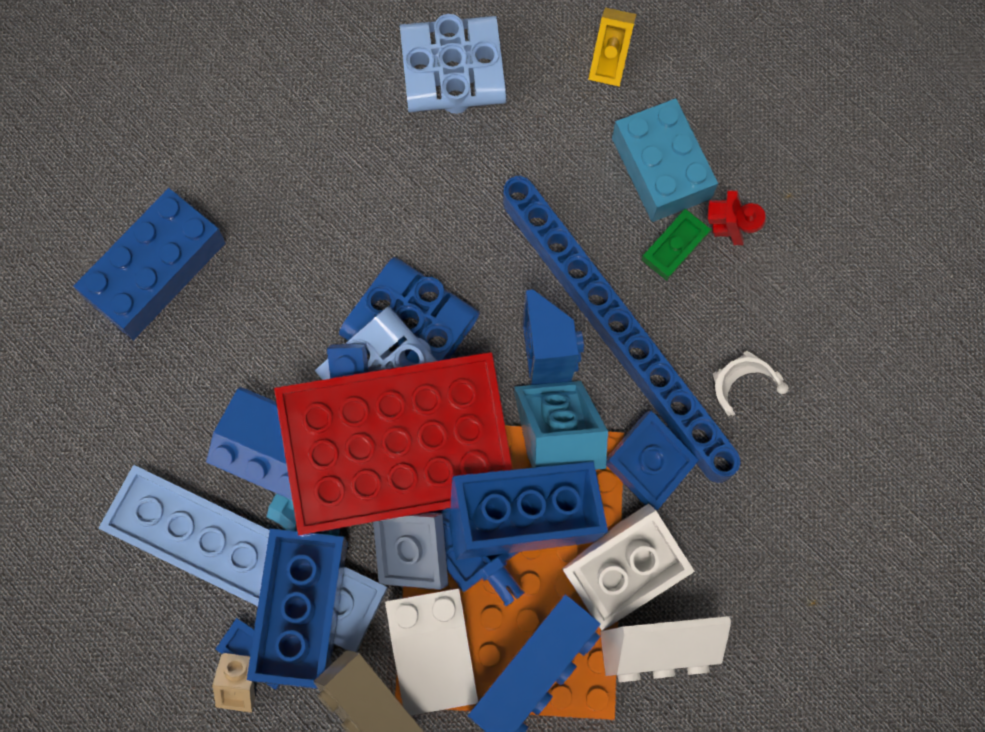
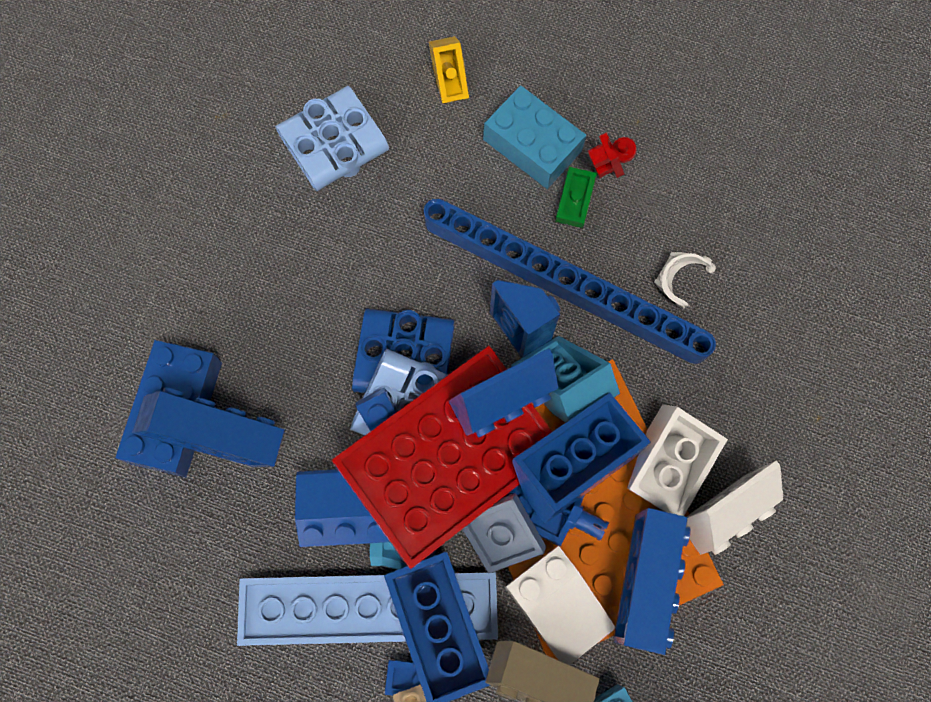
camera: 25 degrees left, 0 degrees up
(174, 302) = (208, 429): none -> blue brick
(480, 408) = (506, 394): none -> blue slope
(651, 460) = (646, 370): blue plate -> none

